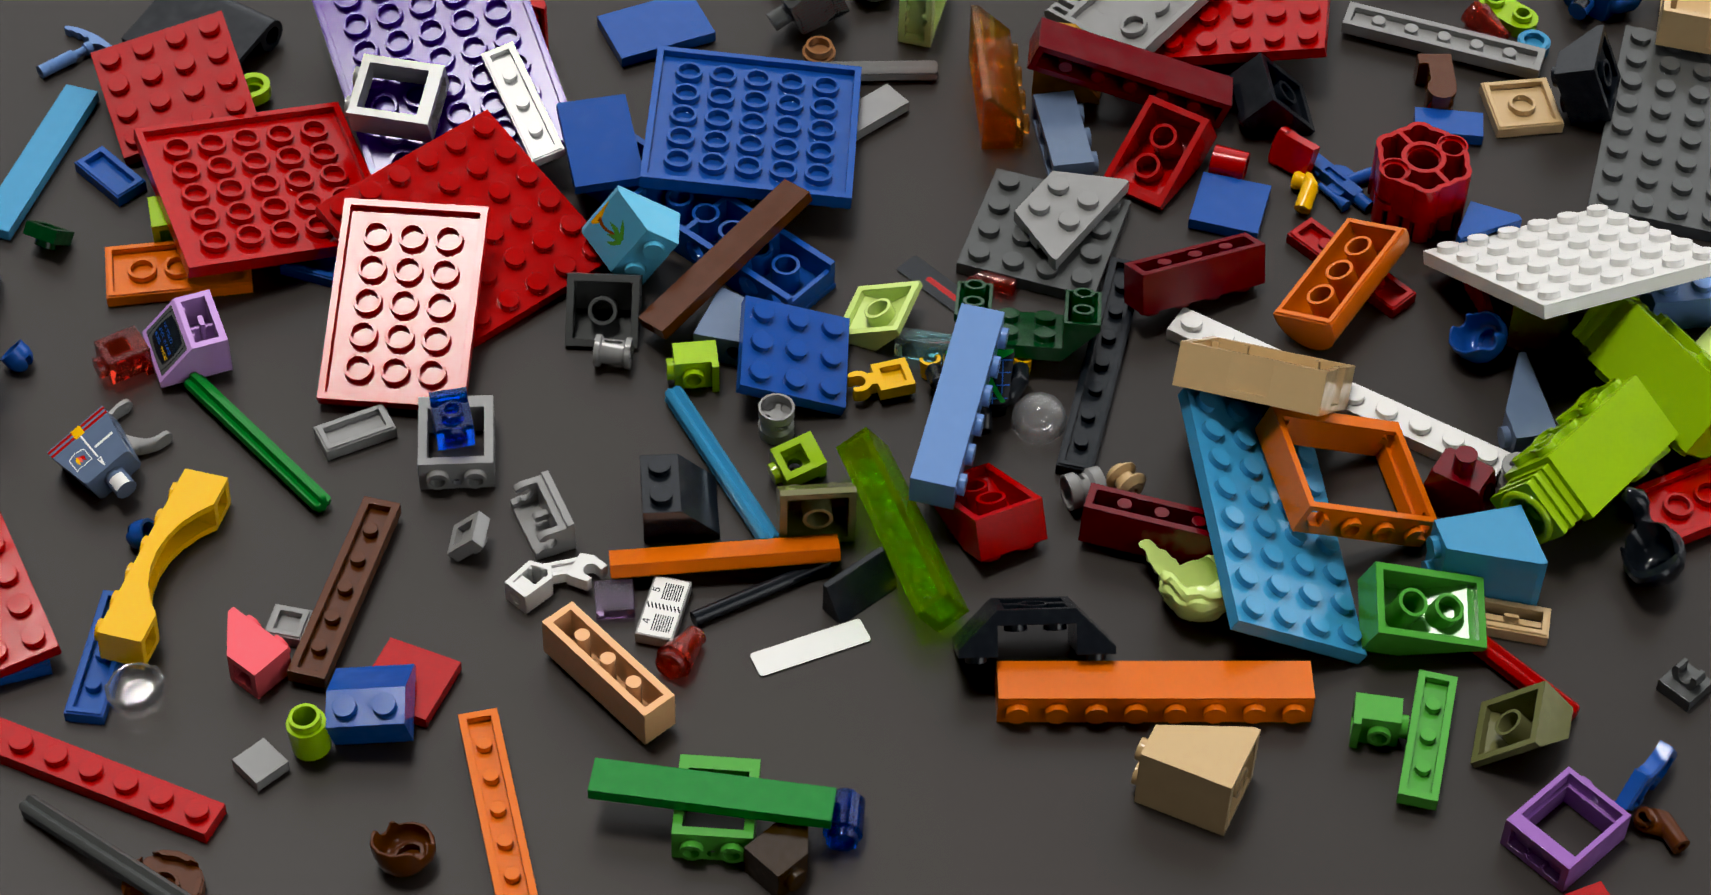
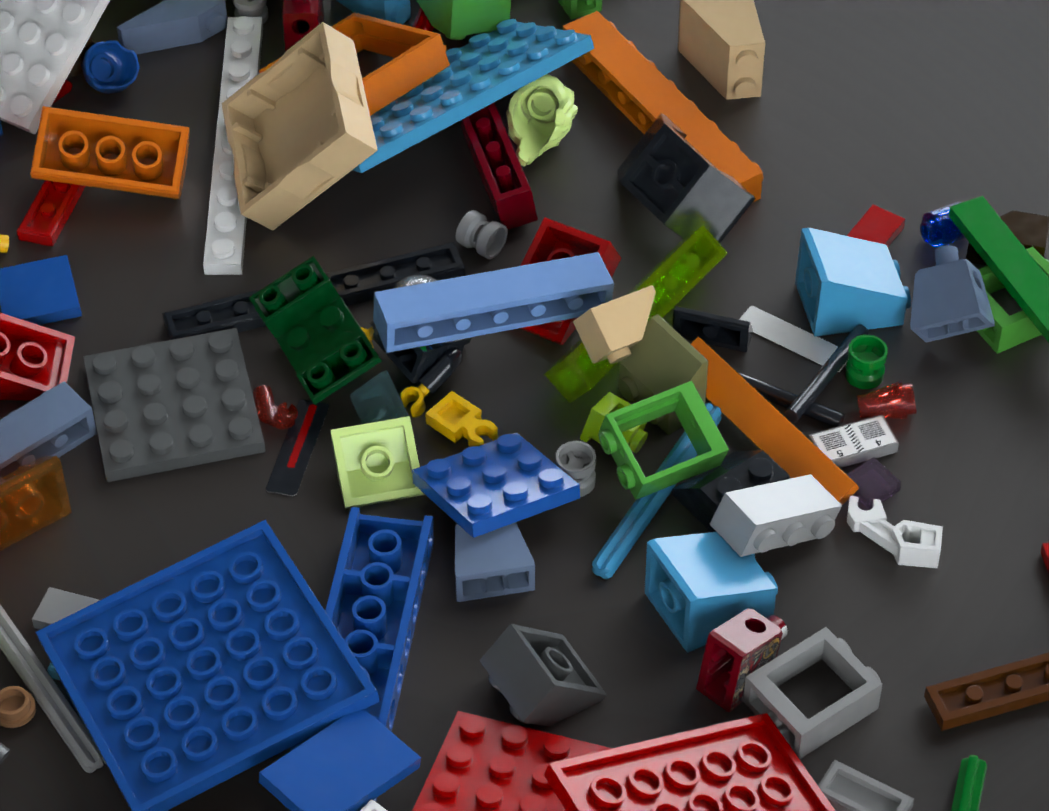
camera: 120 degrees left, 0 degrees up
(451, 418) = (821, 667): clear blue brick -> none
(468, 536) = (910, 615): light grey plate -> none
(520, 417) = (735, 652): none -> dark red torso
(543, 516) = (835, 576): light grey hinge -> none
(594, 422) = (702, 584): none -> dark azure slope
(608, 672) = (965, 423): light nougat brick -> none
(613, 351) = (592, 638): light grey bush -> none
(613, 489) = (775, 515): none -> light grey brick
(632, 233) = (448, 668): medium azure slope -> none
(694, 365) = (560, 562): lime brick -> none
(725, 259) = (422, 579): reddish brown tile -> none
(733, 659) = (866, 361): none -> green wheel
(737, 732) = (949, 298): none -> sand blue torso
(743, 477) = (696, 423): none -> bright green window
(745, 629) = (822, 377): none -> black bar
(821, 685) = (848, 283): none -> dark azure slope
(869, 462) = (615, 325): none -> tan slope
(879, 762) = (878, 226): none -> red tile
(1066, 211) = (147, 378): light grey wing -> none
(1124, 477) = (450, 212): tan wheel -> none
(1194, 274) = (171, 253): dark red brick -> none

